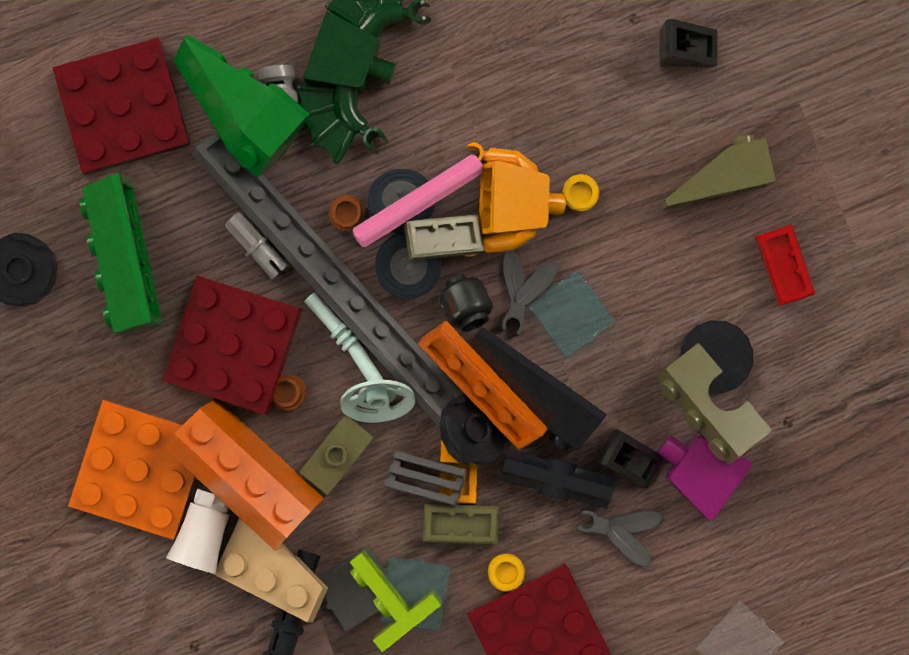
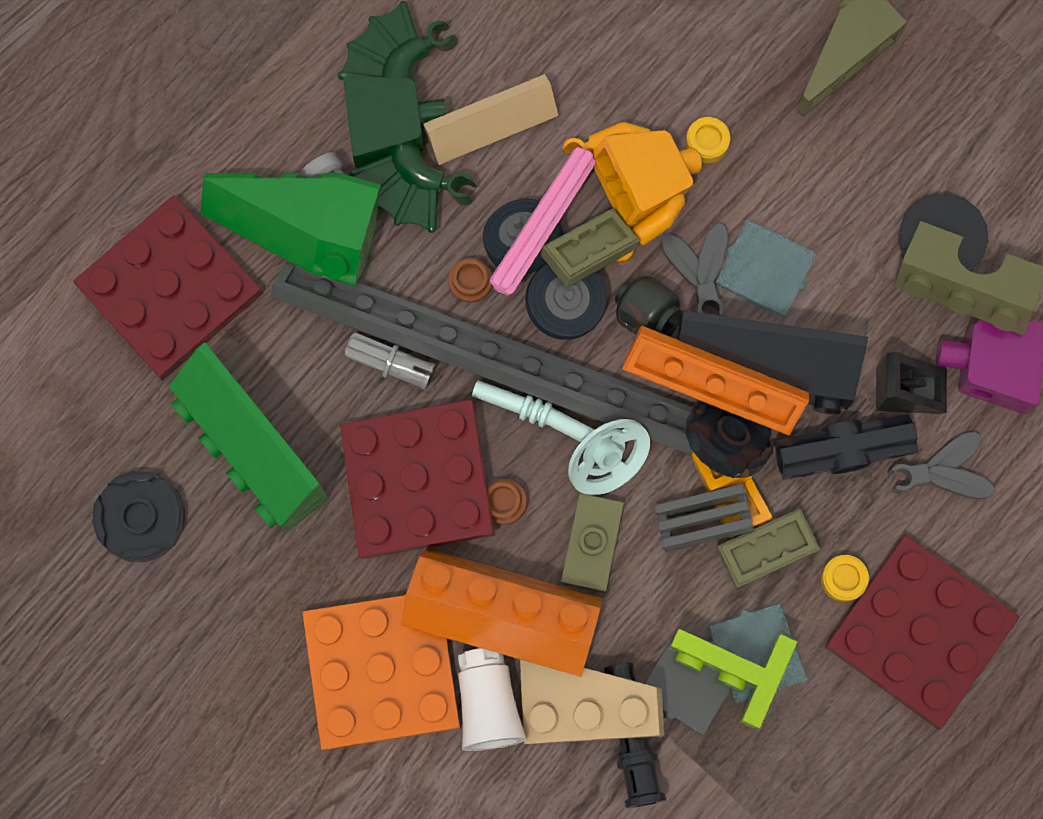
camera: 25 degrees left, 10 degrees down
(423, 97) = (491, 119): none -> tan tile
(785, 265) = (962, 107): red plate -> none

